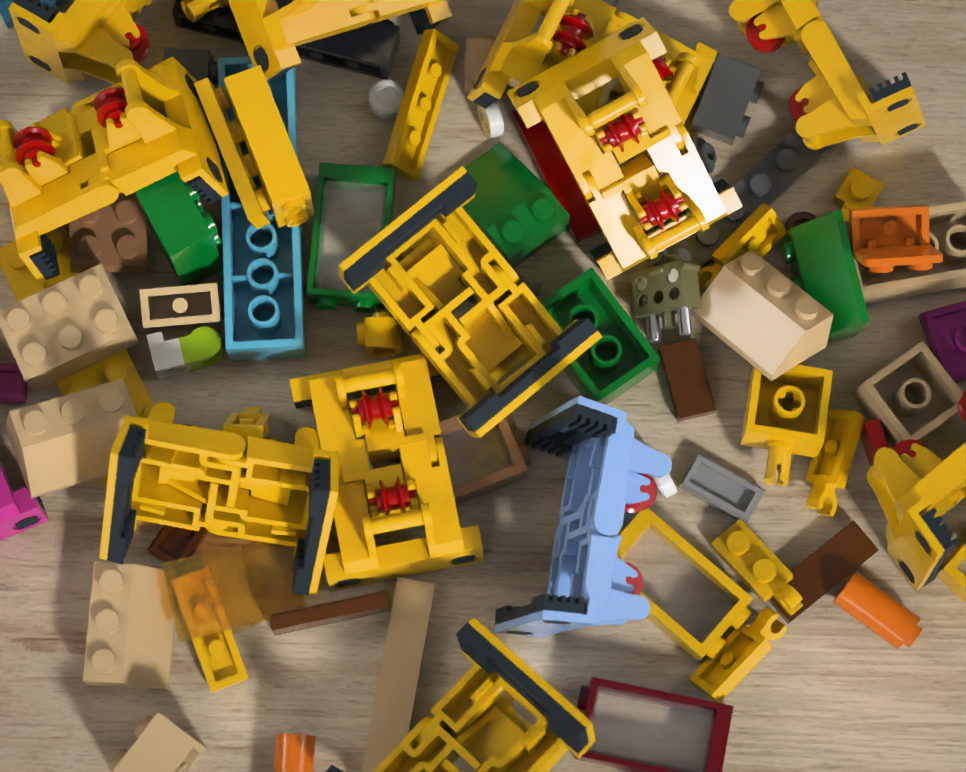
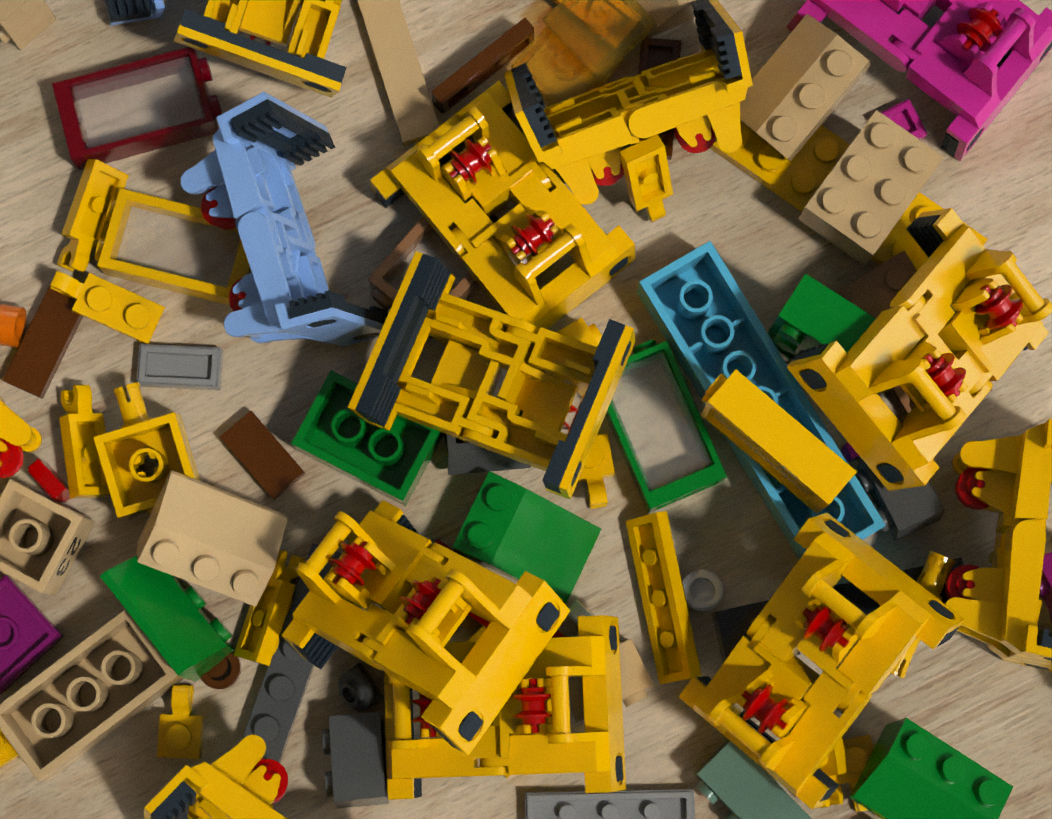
camera: 155 degrees right, 5 degrees up
(180, 305) = (777, 269): tan brick -> none
(186, 353) = (752, 231): leg -> none
(239, 165) = (868, 468): yellow plate -> none
(665, 292) = (313, 517): olive piece -> none
(665, 486) = (241, 346): white tile -> none
(892, 238) = (109, 668): orange bracket -> none

